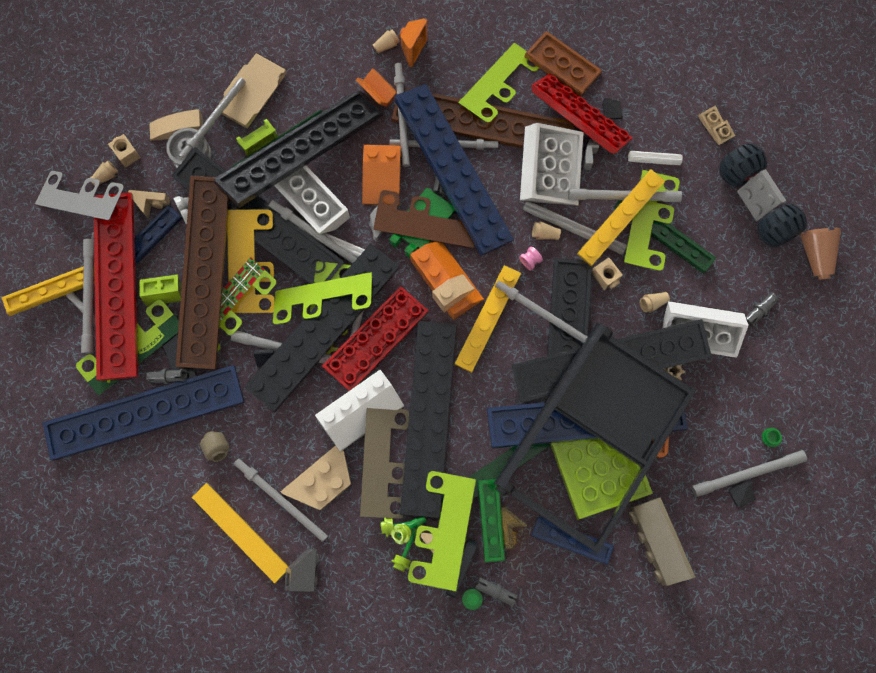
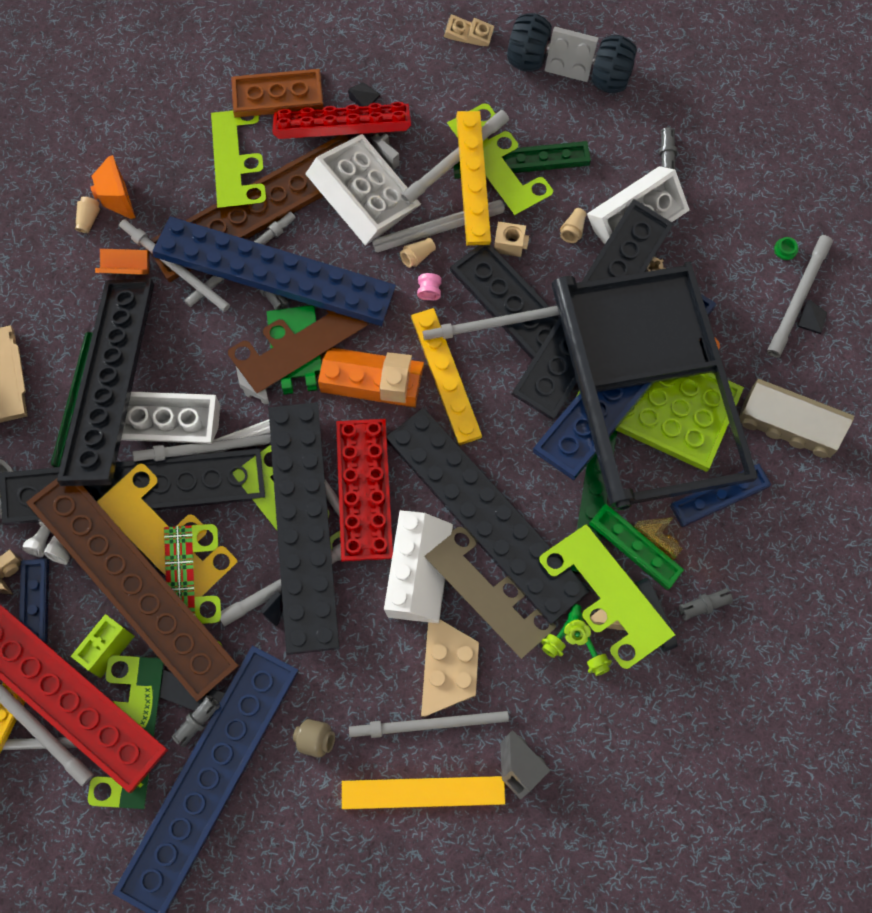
camera: 45 degrees left, 5 degrees down
(257, 138) = (49, 414): lime hinge -> none
(314, 293) = (264, 498): lime piece -> none
(381, 173) = (209, 336): orange slope -> none
(472, 599) = (692, 632): green plate -> none
(656, 158) = (445, 104): white axle -> none
(822, 250) = (666, 57): nougat cone -> none

